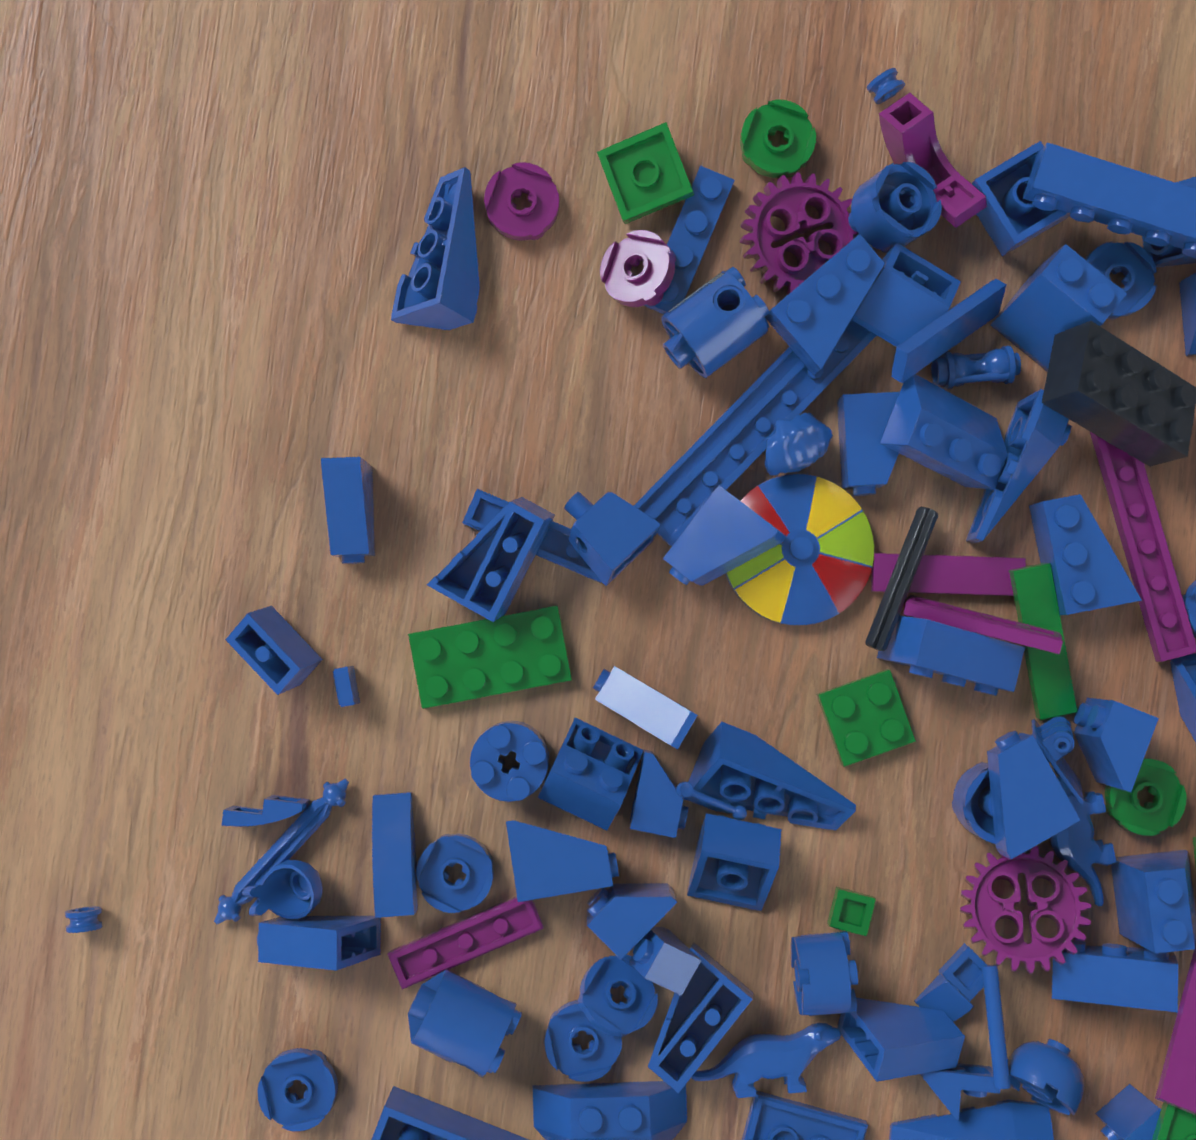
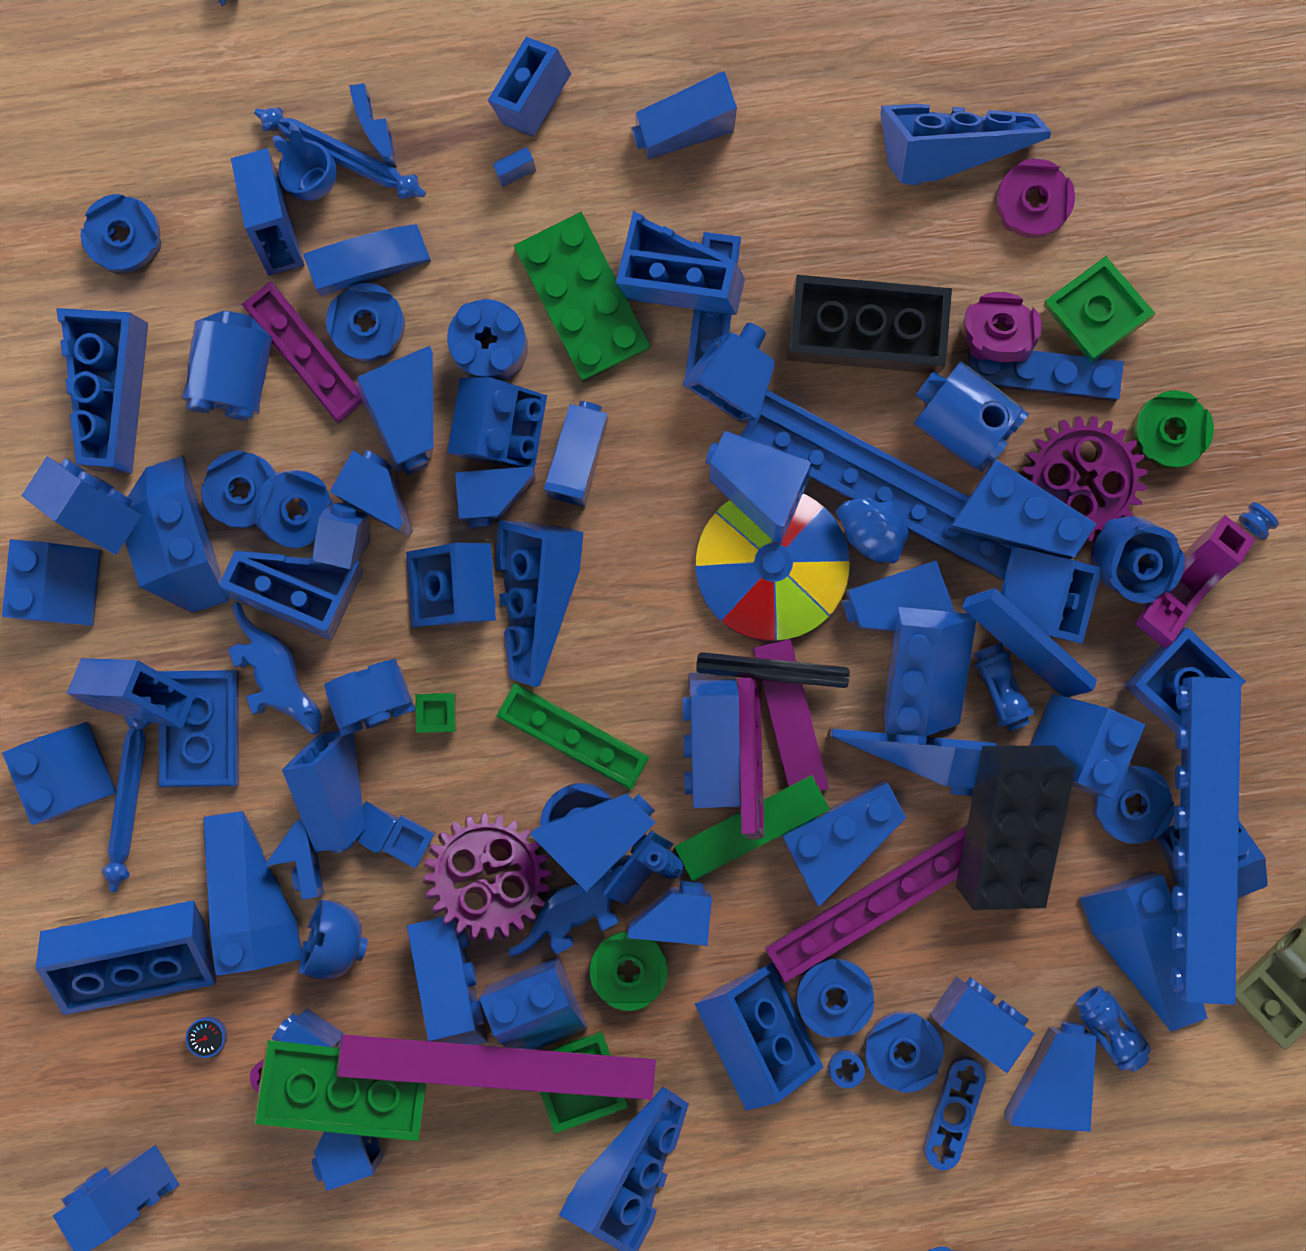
camera: 80 degrees right, 0 degrees up
(599, 391) = (869, 324): none -> black brick
(686, 789) = (507, 514): blue hinge -> none
(865, 717) = (627, 676): green plate -> none
(908, 785) = (572, 736): none -> green tile
(996, 1027) = (364, 878): blue bar -> none

